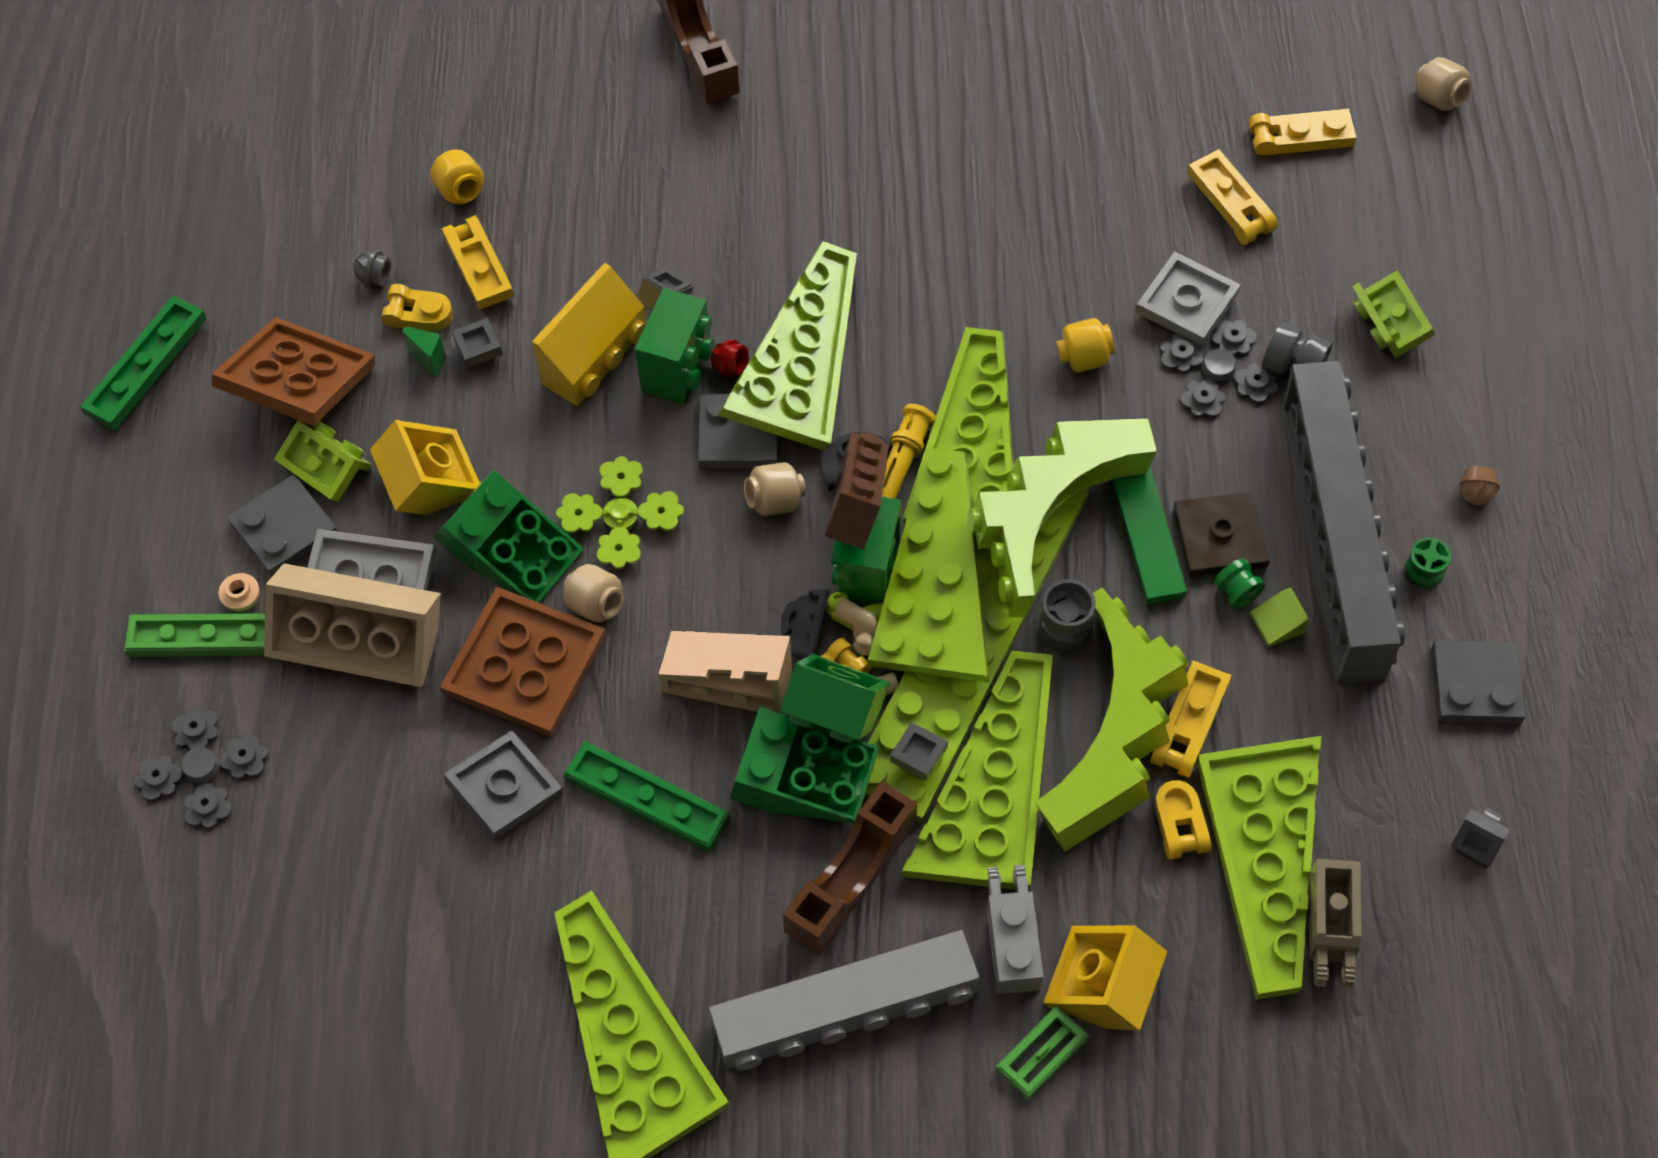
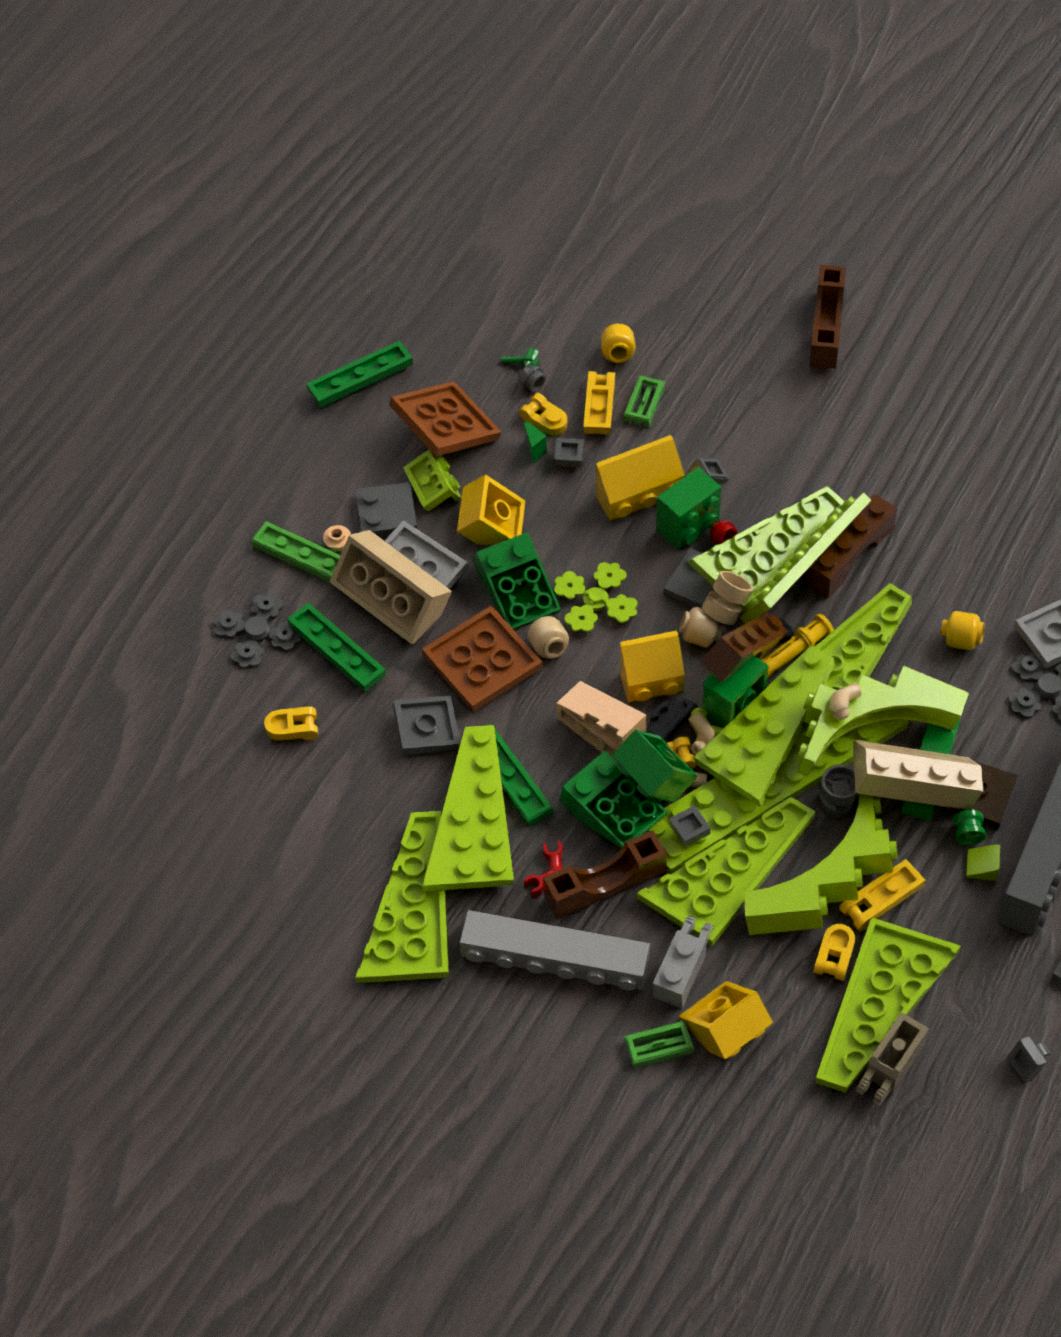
camera: 30 degrees right, 5 degrees down
(311, 882) = (280, 724): none -> yellow plate
(324, 739) = (336, 647): none -> green plate
(354, 247) = (529, 358): none -> green hand
(534, 259) = (639, 417): none -> bright green tile
(649, 896) = (472, 830): none -> lime wing
(748, 569) = (651, 666): none -> yellow slope
(782, 897) = (555, 865): none -> red arm
(793, 431) = (729, 594): none -> tan wheel
(856, 345) = (804, 556): none -> lime plate
(892, 302) = (868, 527): none -> reddish brown arch
(1019, 503) = (840, 700): none -> tan arm
(1150, 549) = (916, 775): none -> tan slope

